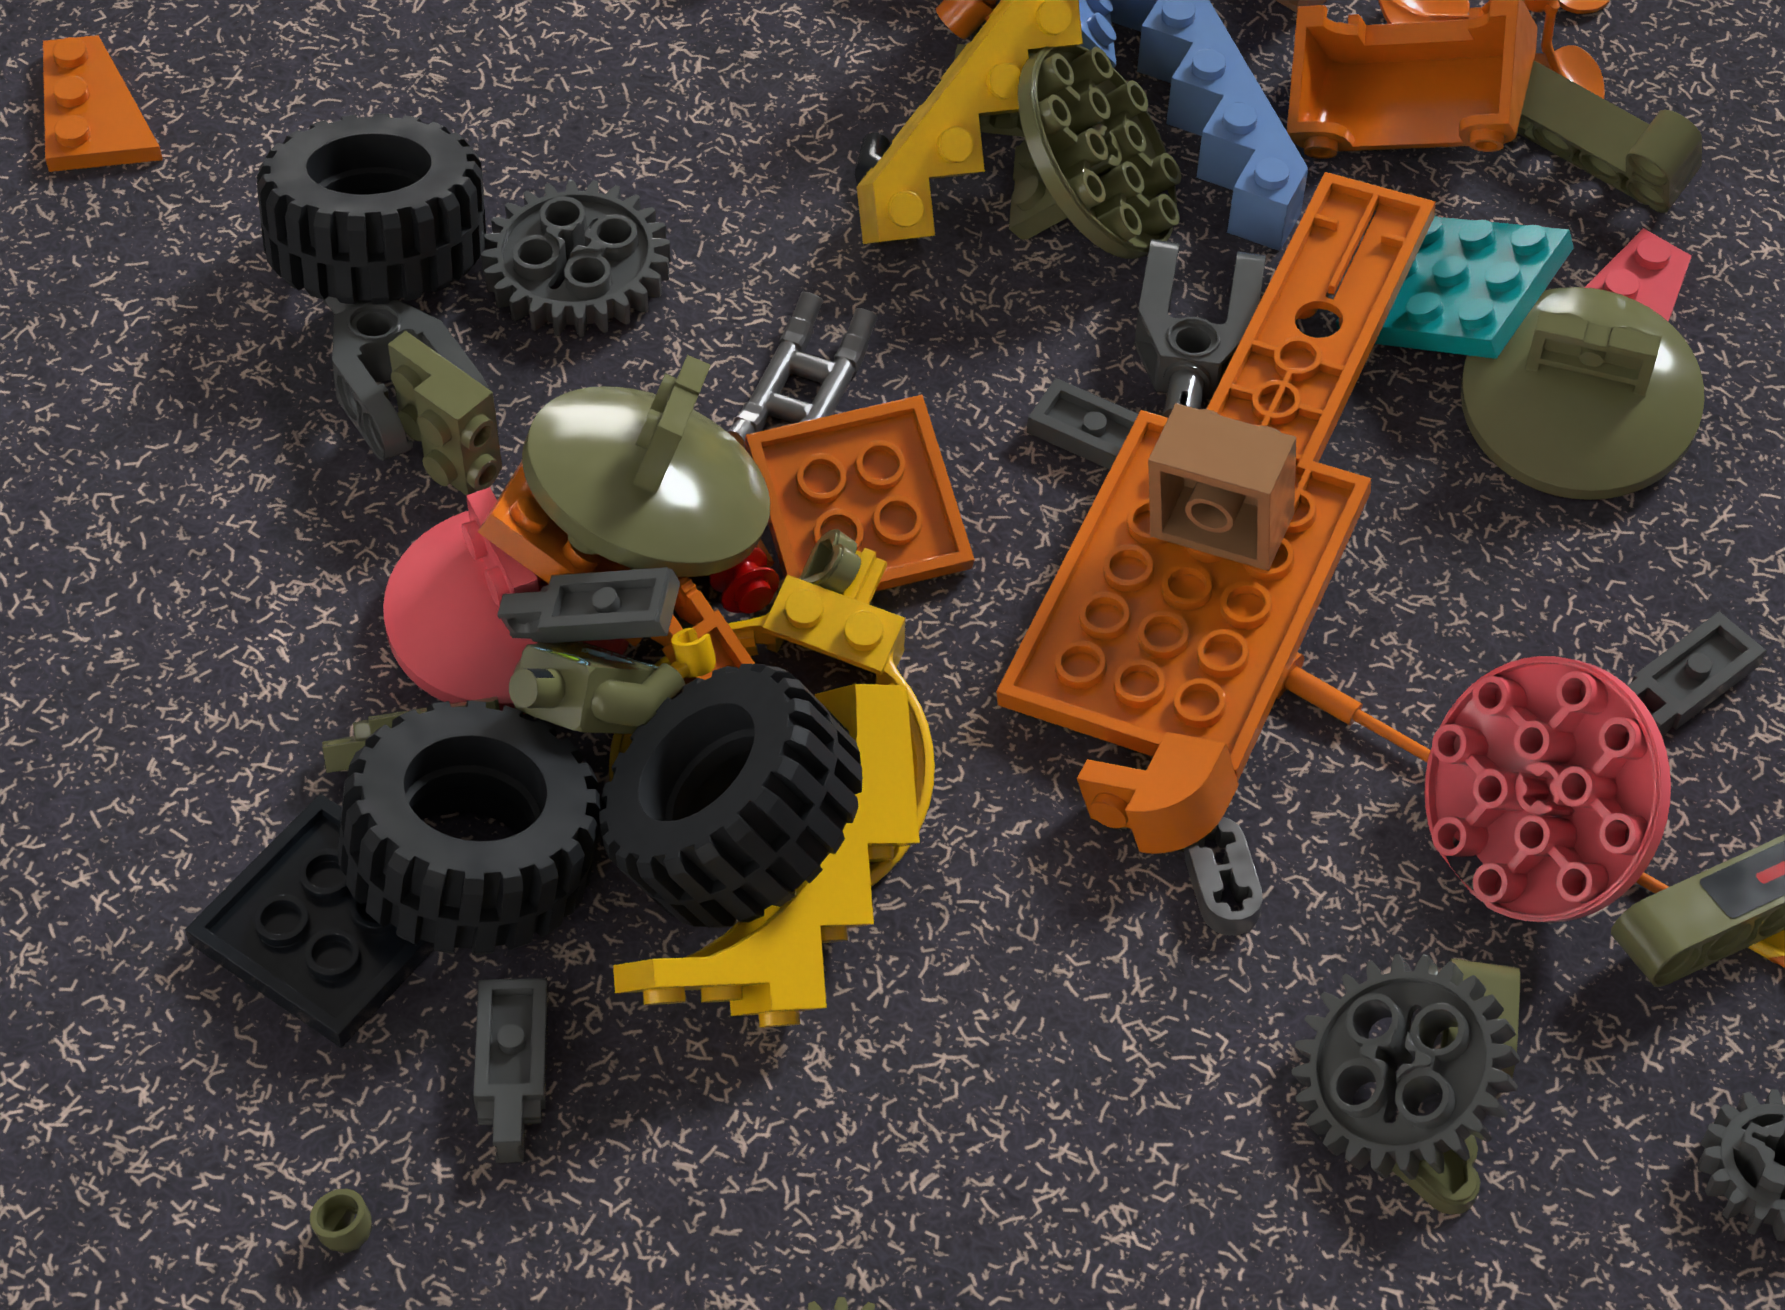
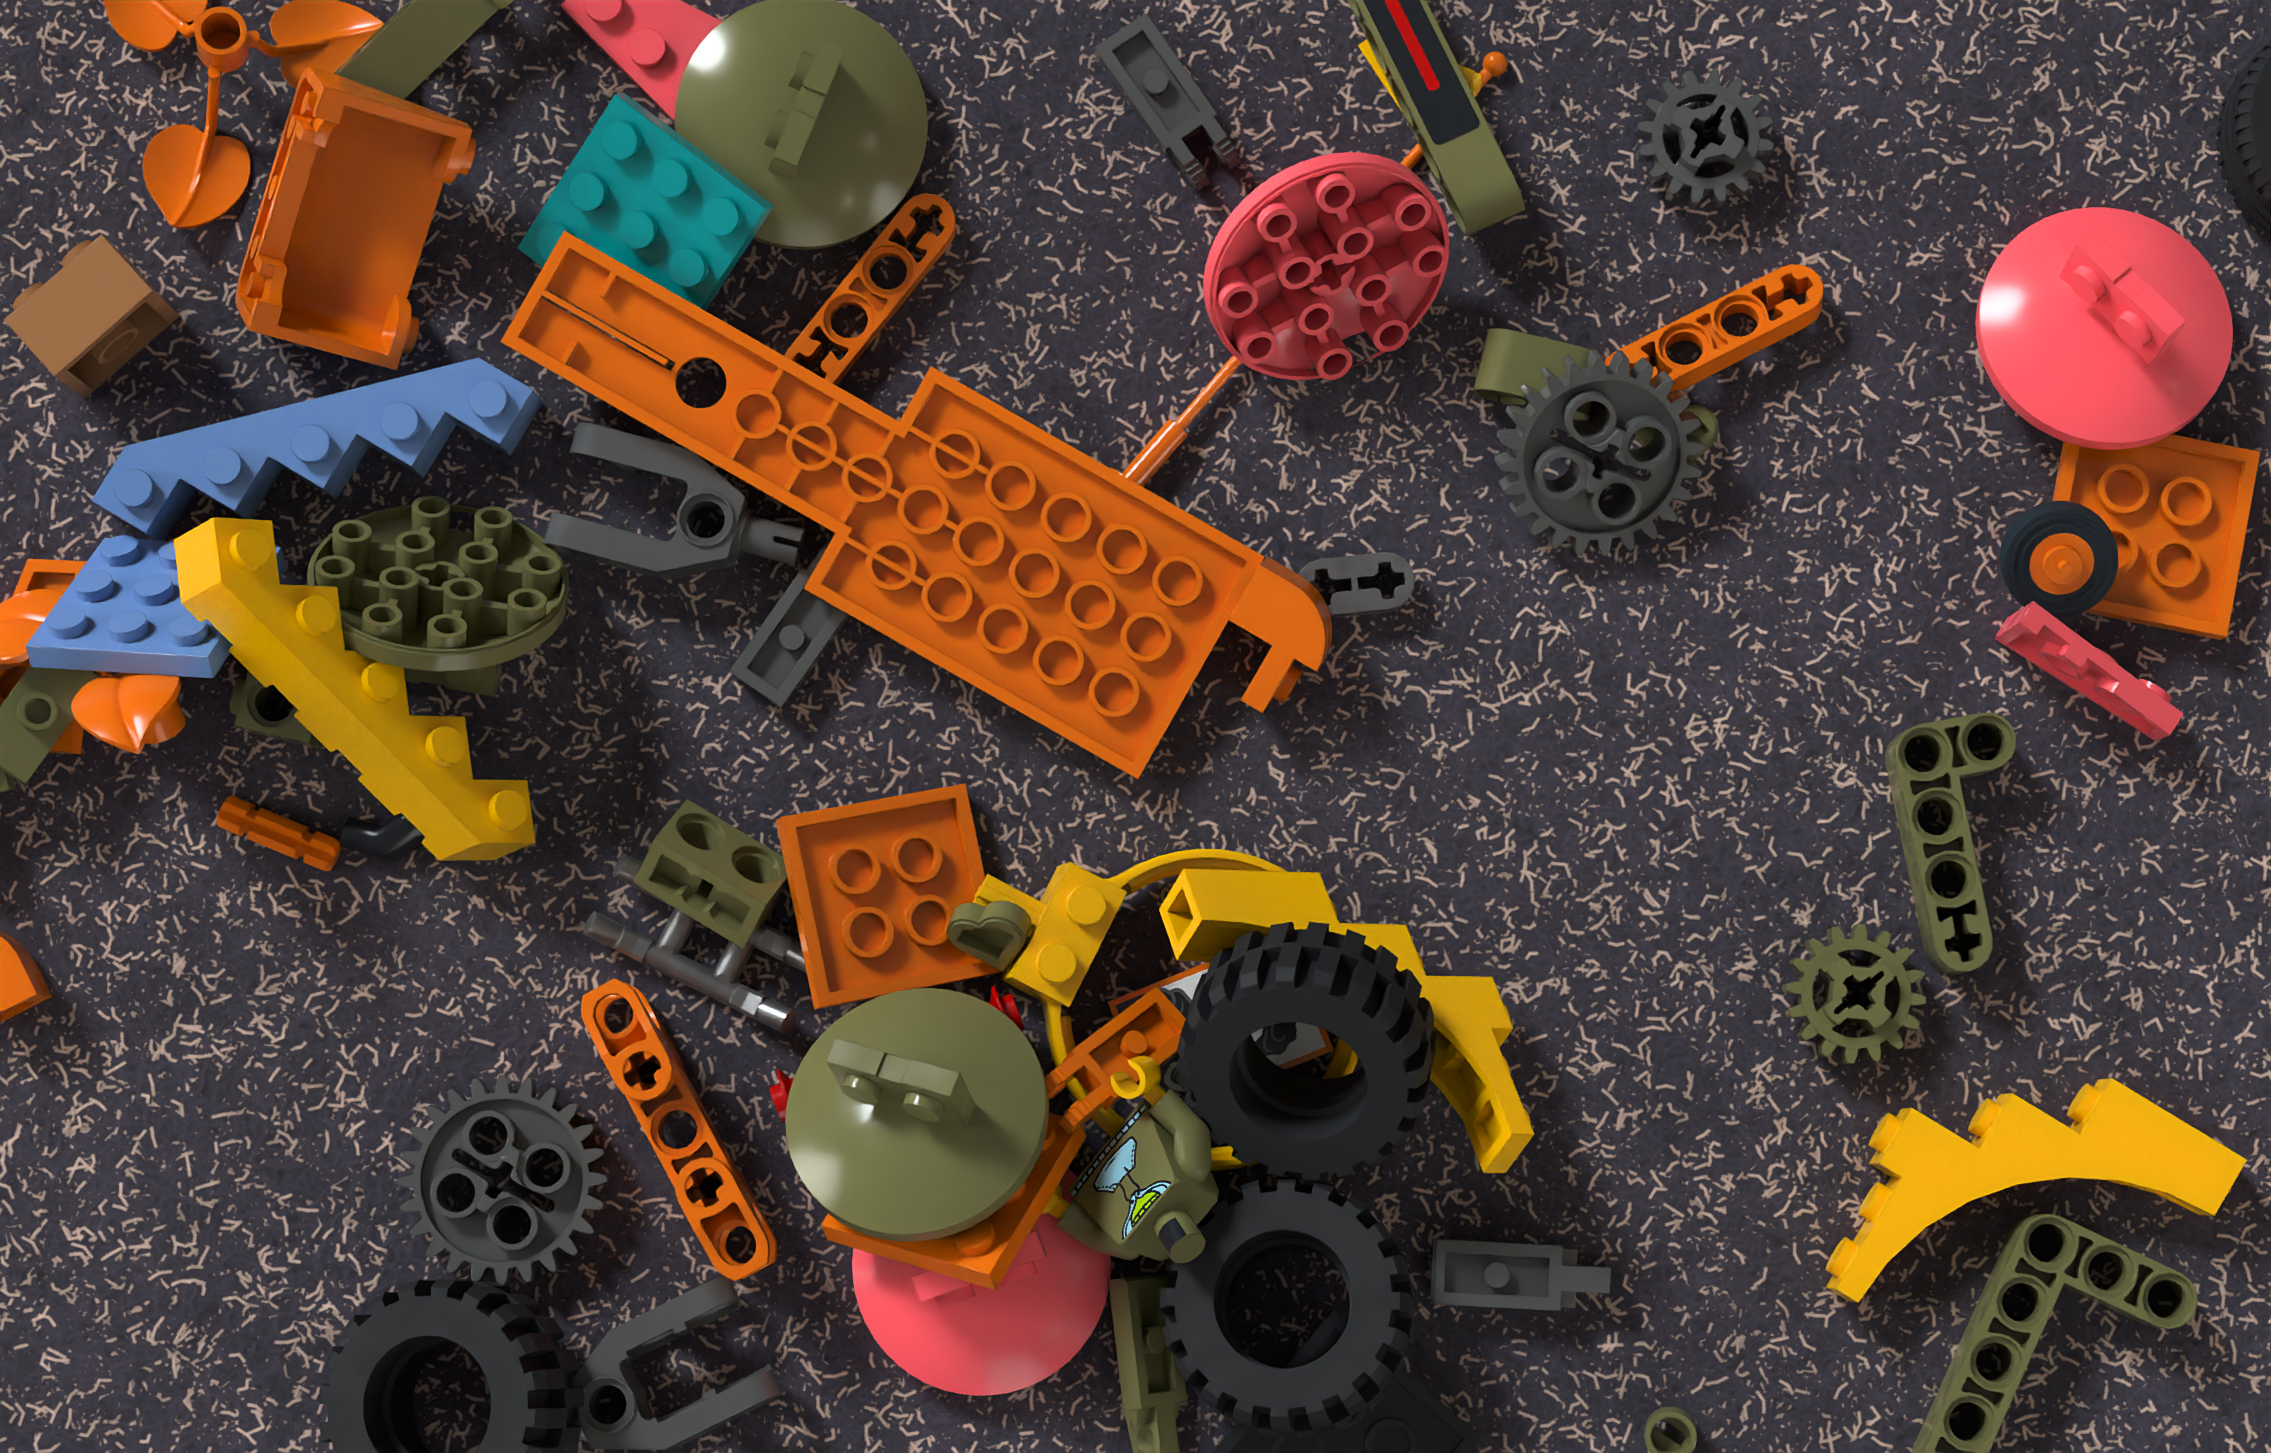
camera: 85 degrees left, 30 degrees up
(446, 413) = (765, 1320): olive plate -> none
(594, 606) = (1086, 1172): dark grey hinge -> none
(633, 346) = (653, 1104): none -> orange piece
(867, 363) = (714, 873): none -> olive brick
(869, 100) = (278, 833): none -> orange axle
(1222, 486) = (964, 520): medium nougat brick -> none
(1434, 460) = (861, 291): none -> orange beam
(1570, 1184) = (1723, 349): none -> orange beam

